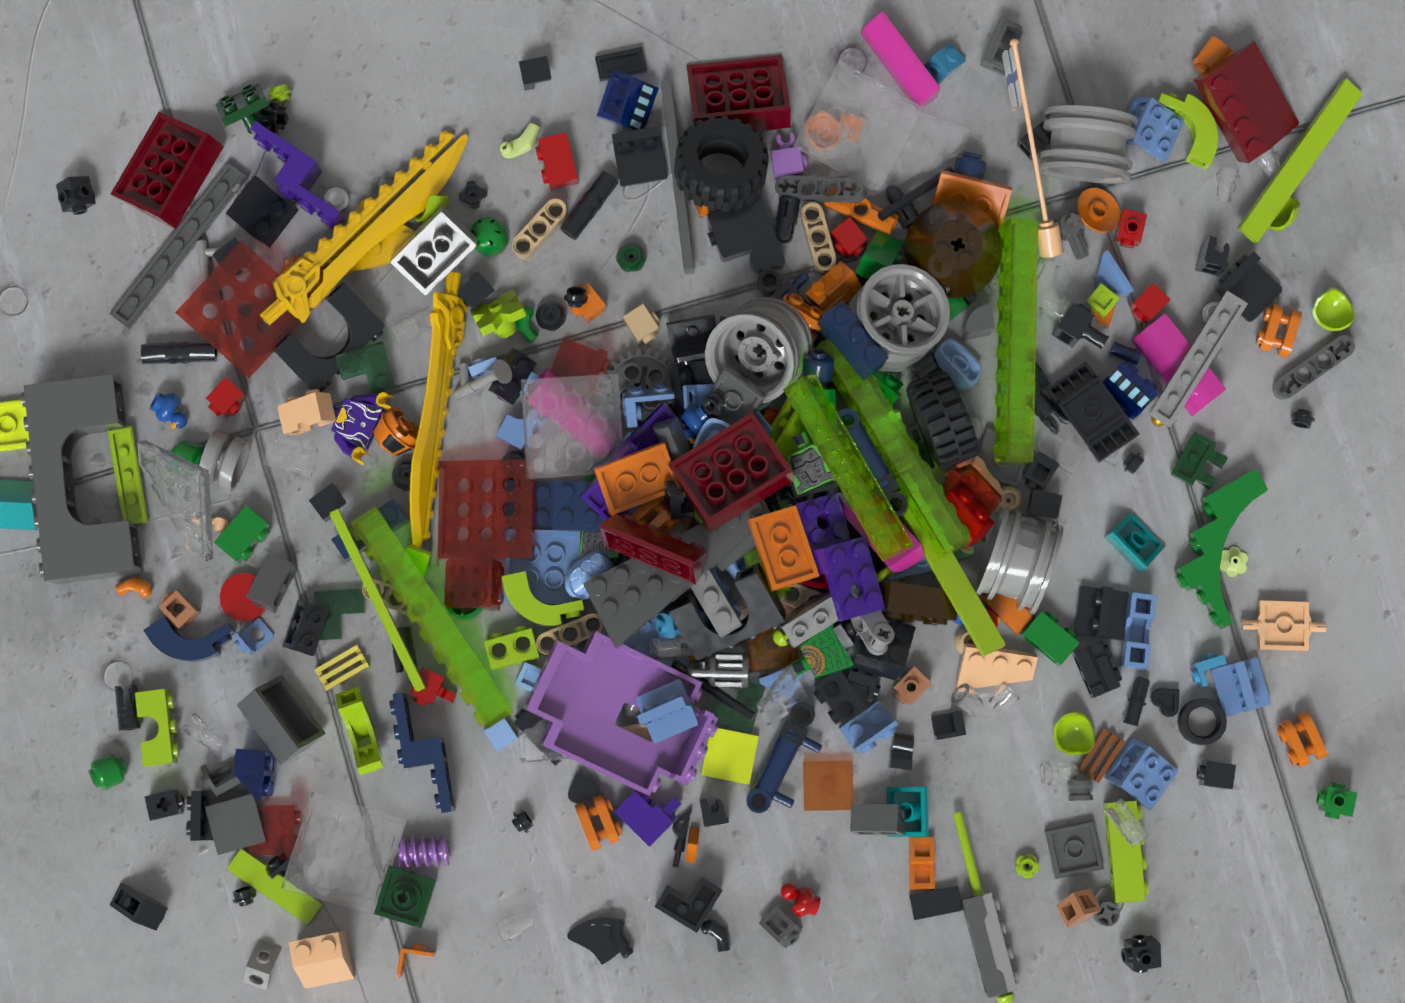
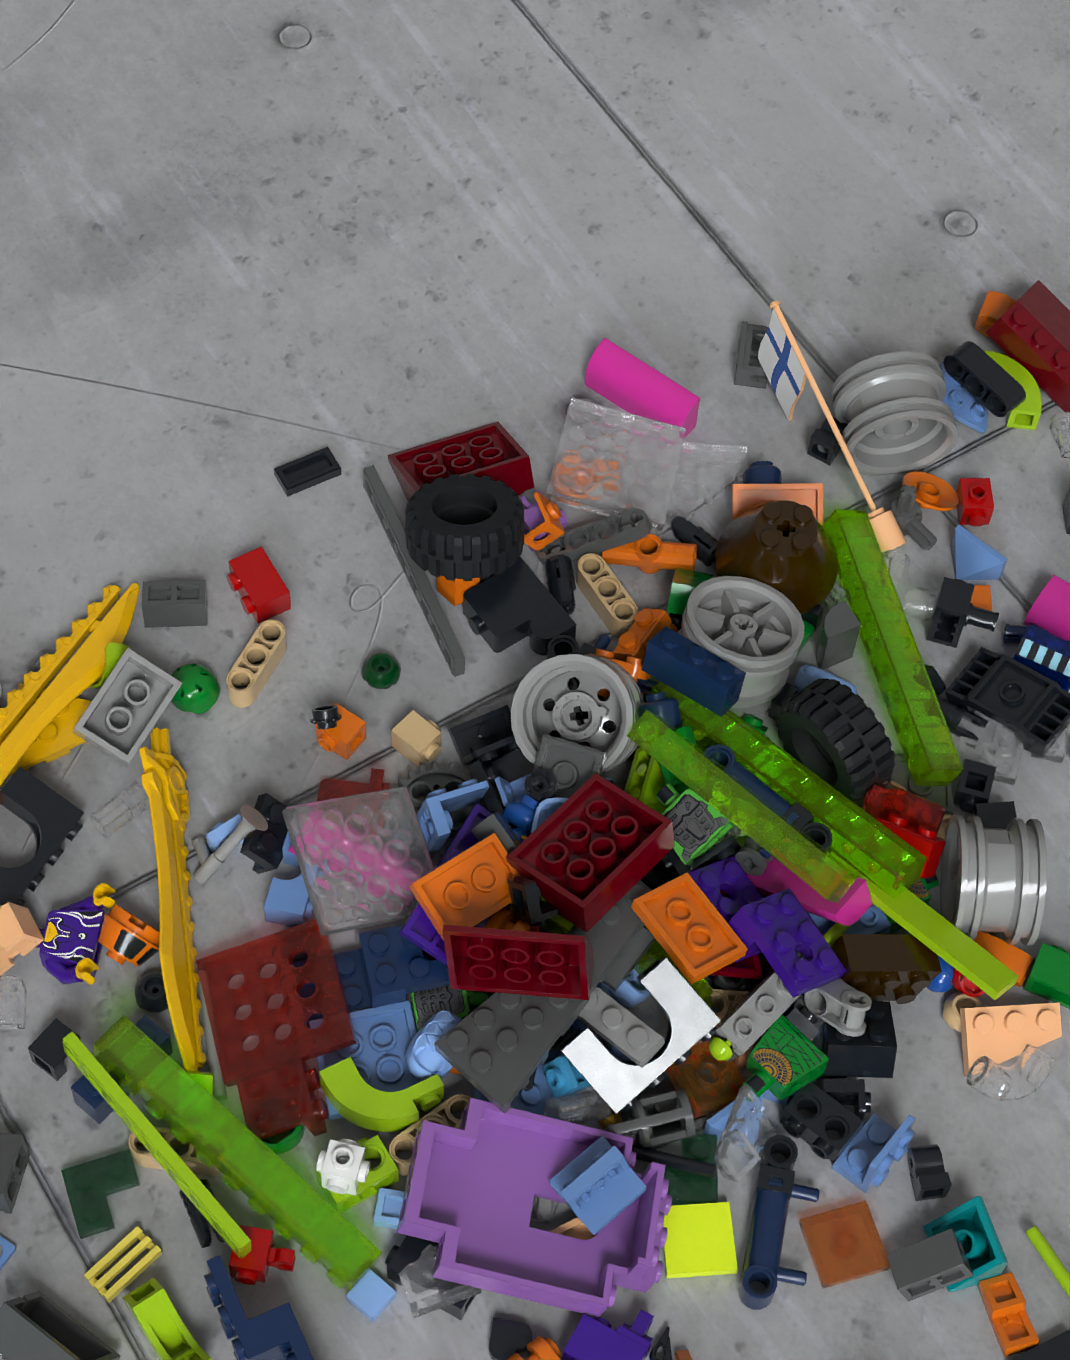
camera: 15 degrees left, 25 degrees down
(305, 628) = (59, 1218): black bracket -> none
(370, 361) = (72, 859): clear green plate -> none
(470, 188) = (161, 639): black plate -> none
(475, 290) = (193, 746): black panel -> none
(490, 161) = (174, 603): none -> dark grey hinge
(499, 315) = (232, 768): lime plant -> none
(509, 654) = (343, 1166): none -> white brick
(522, 144) = (214, 572): yellowish green arm -> none
(524, 327) = (264, 775): green arm -> none
(534, 71) = (203, 494): black panel -> none
(546, 322) = (300, 767): black plate -> none
(589, 205) = (311, 624): black axle -> none
(627, 101) = (327, 501): clear blue slope -> none
(639, 156) = (358, 555): black bracket -> none
(714, 817) = (702, 1320): black hinge -> none
(791, 167) = (551, 525): none -> orange bracket
(849, 239) = (646, 585): red brick -> none
(911, 196) = (702, 523): black bar -> none
(912, 676) = (914, 1071): nougat brick -> none
(944, 62) = (696, 381): dark azure bracket -> none
(948, 725) = (978, 1121): black panel -> none
(1102, 300) = (977, 576): lime plate -> none
(1149, 304) = (1030, 572): red brick -> none
(1173, 127) = (984, 379): none -> black beam

